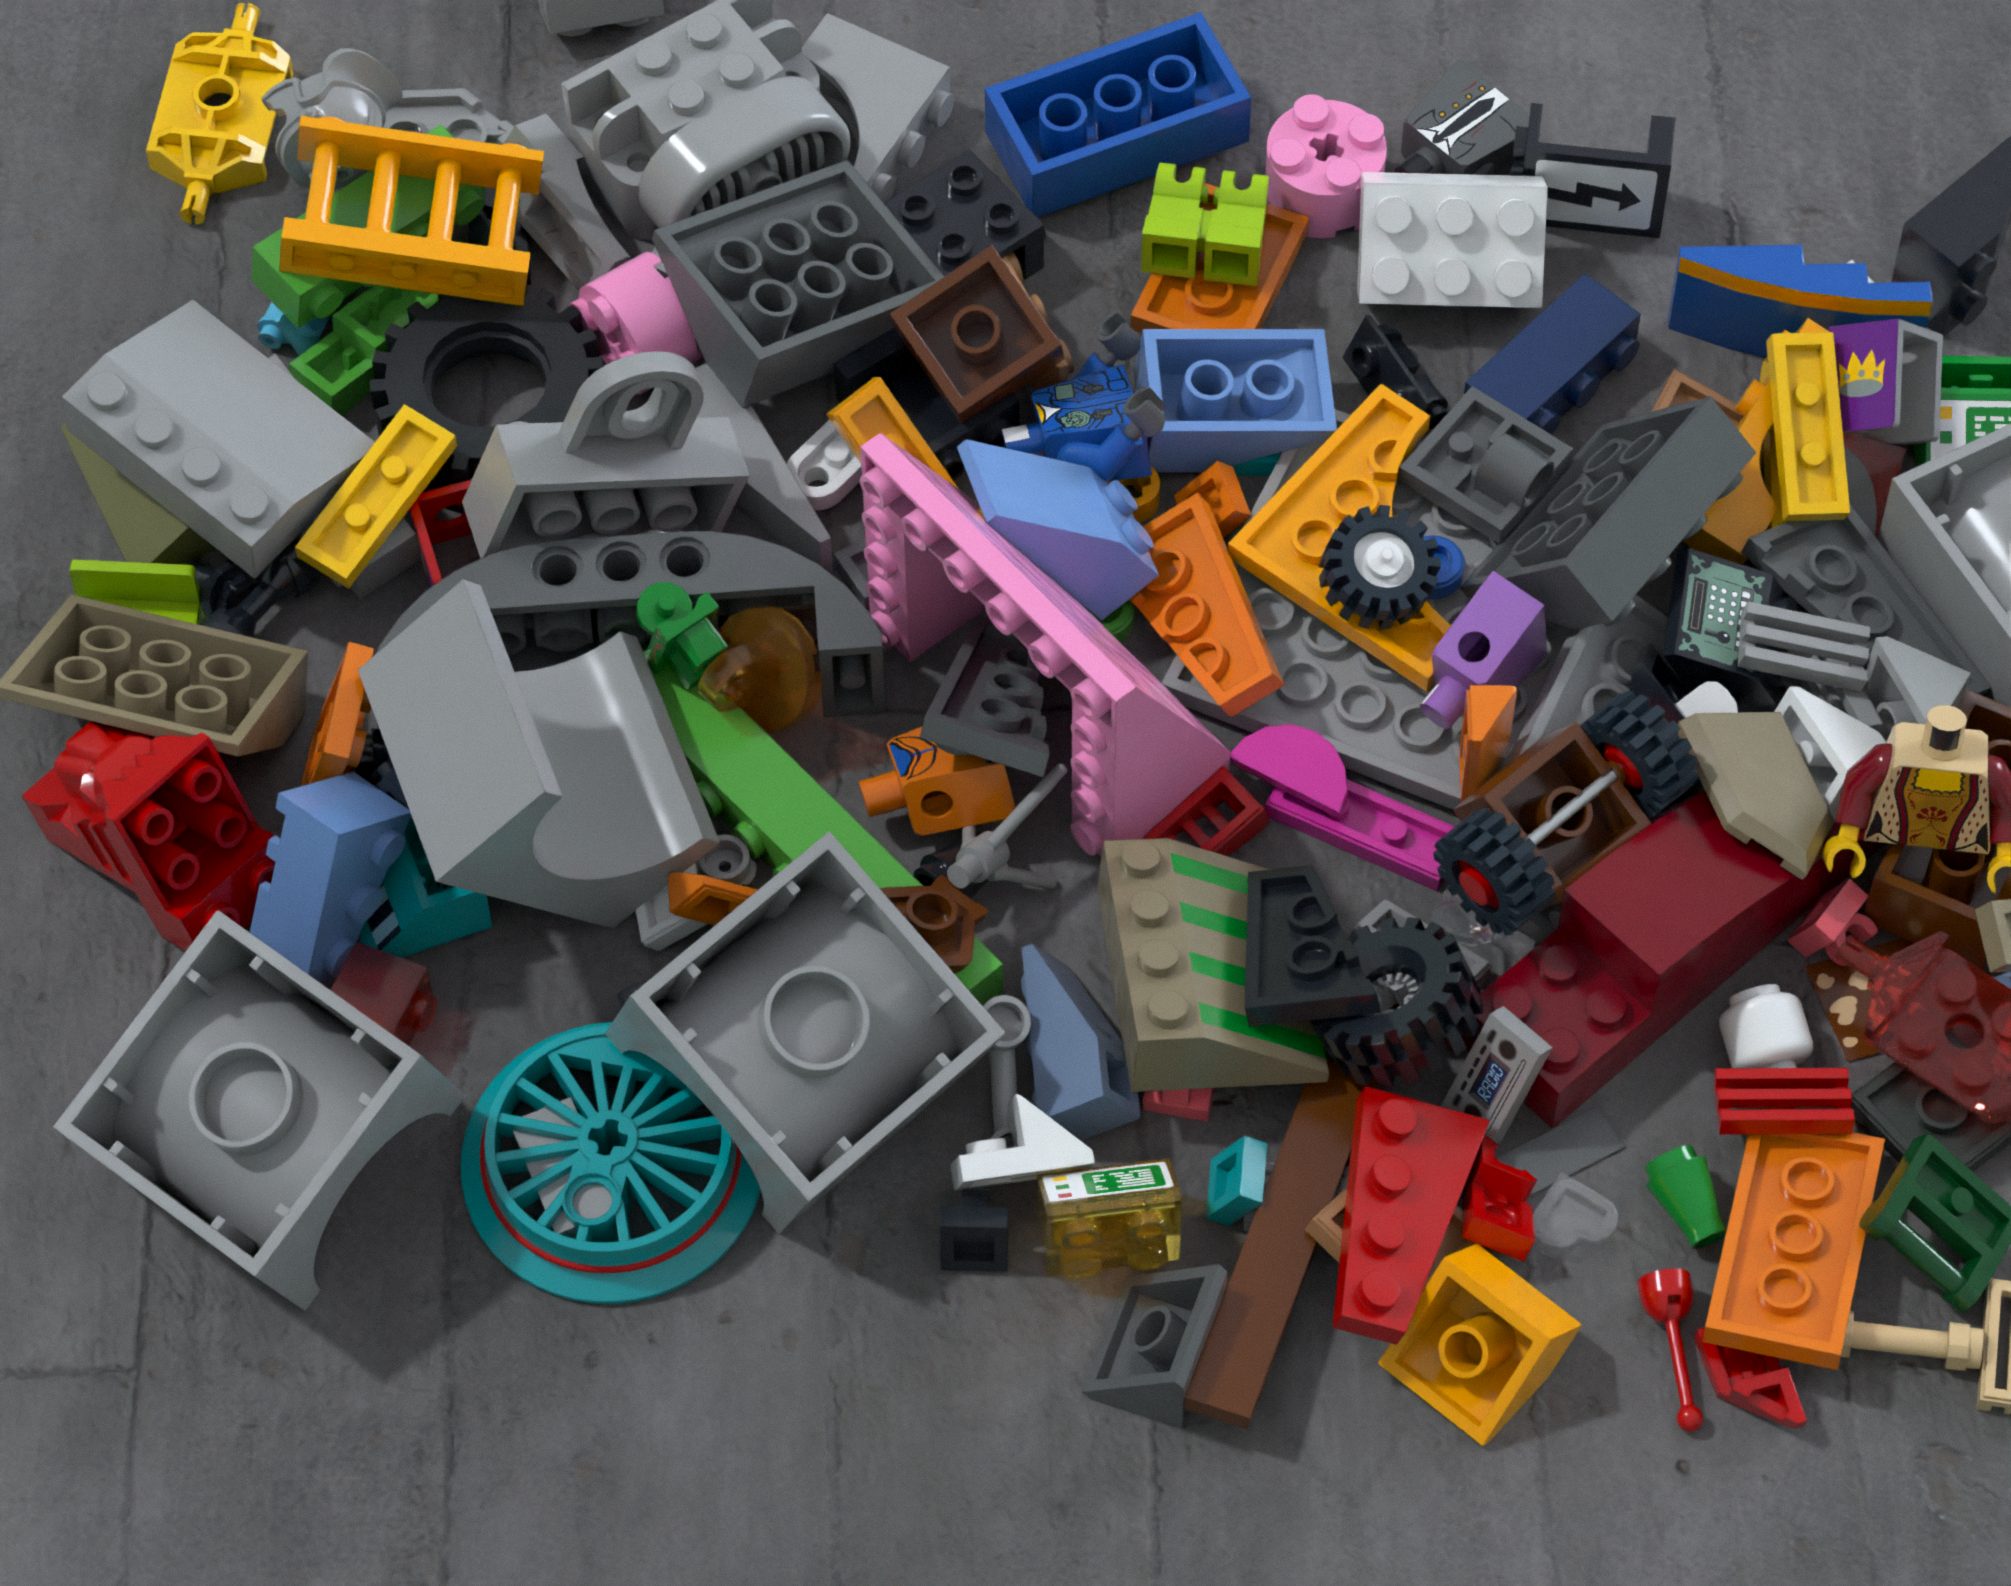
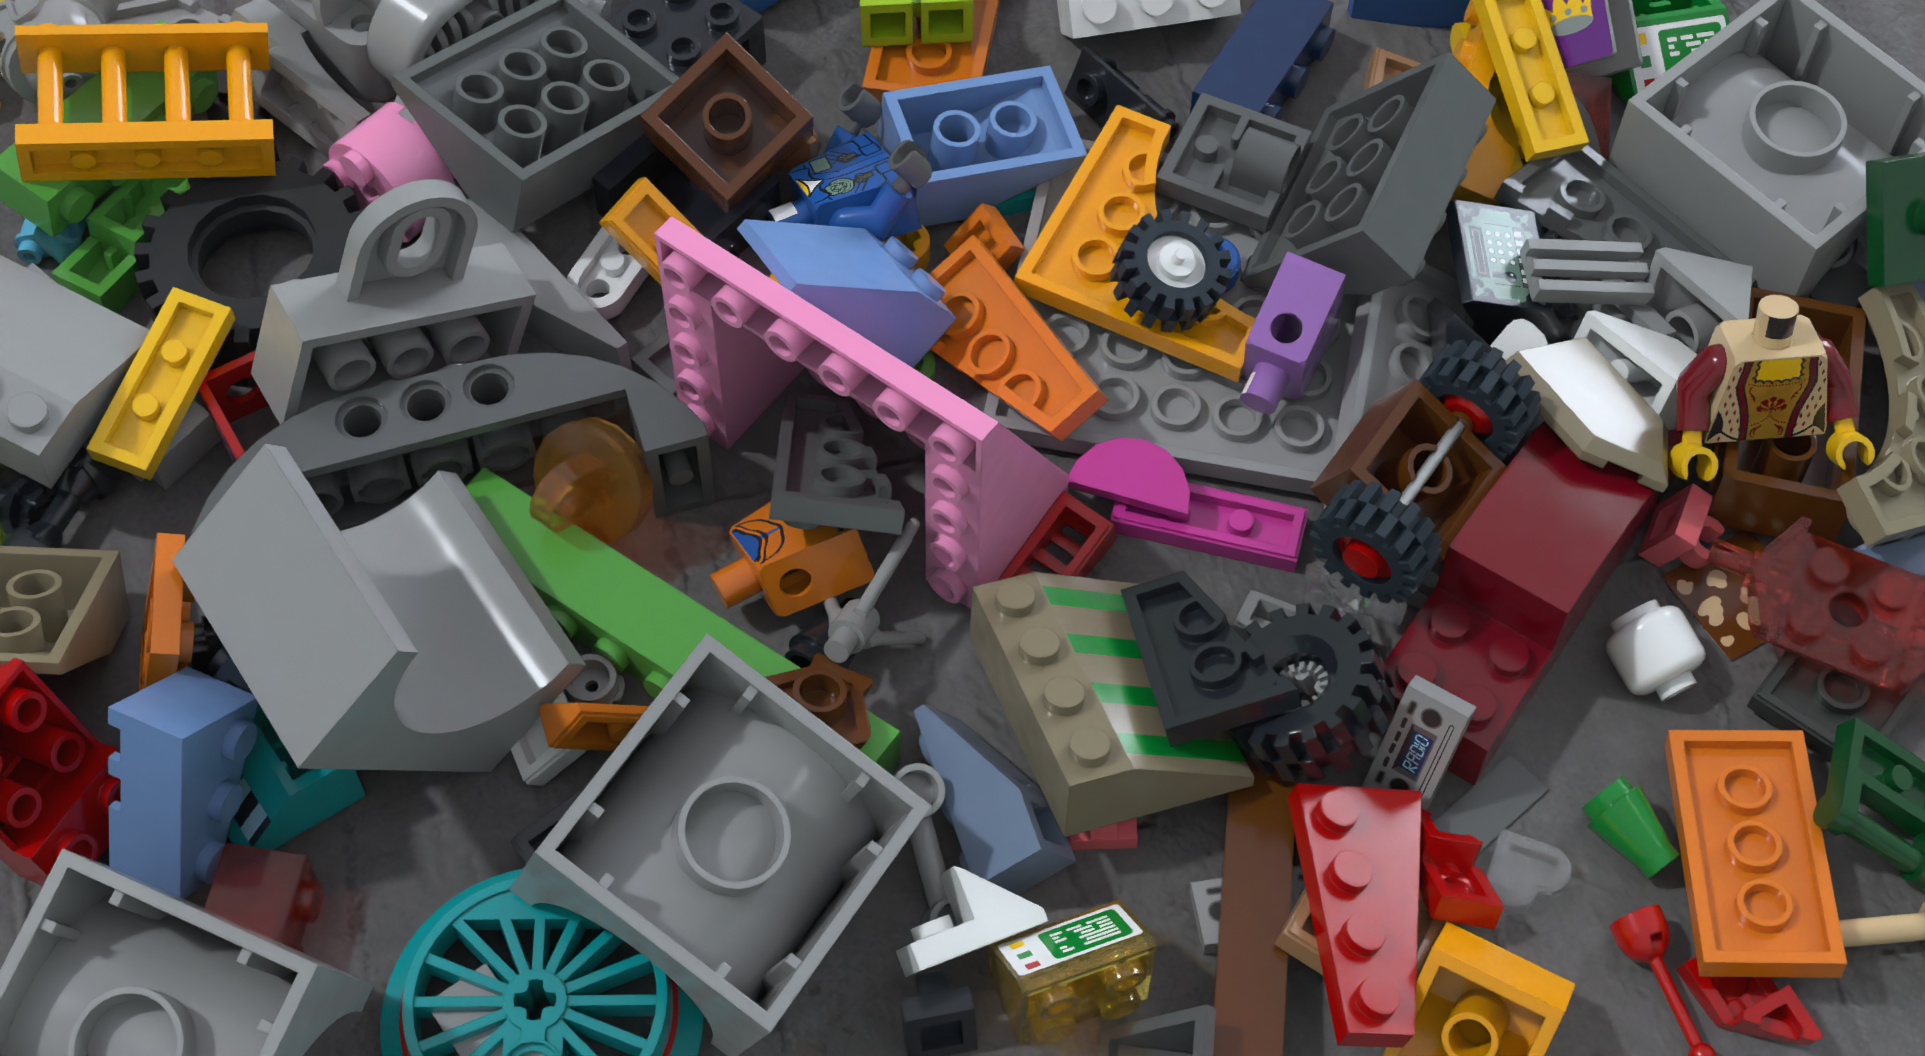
camera: 15 degrees left, 0 degrees up
(678, 633) = (500, 464): green hips -> none
(1236, 1180) = (1188, 906): teal tile -> none
(1484, 734) = (1312, 414): orange slope -> none
(1782, 1092) = (1693, 704): red tile -> none

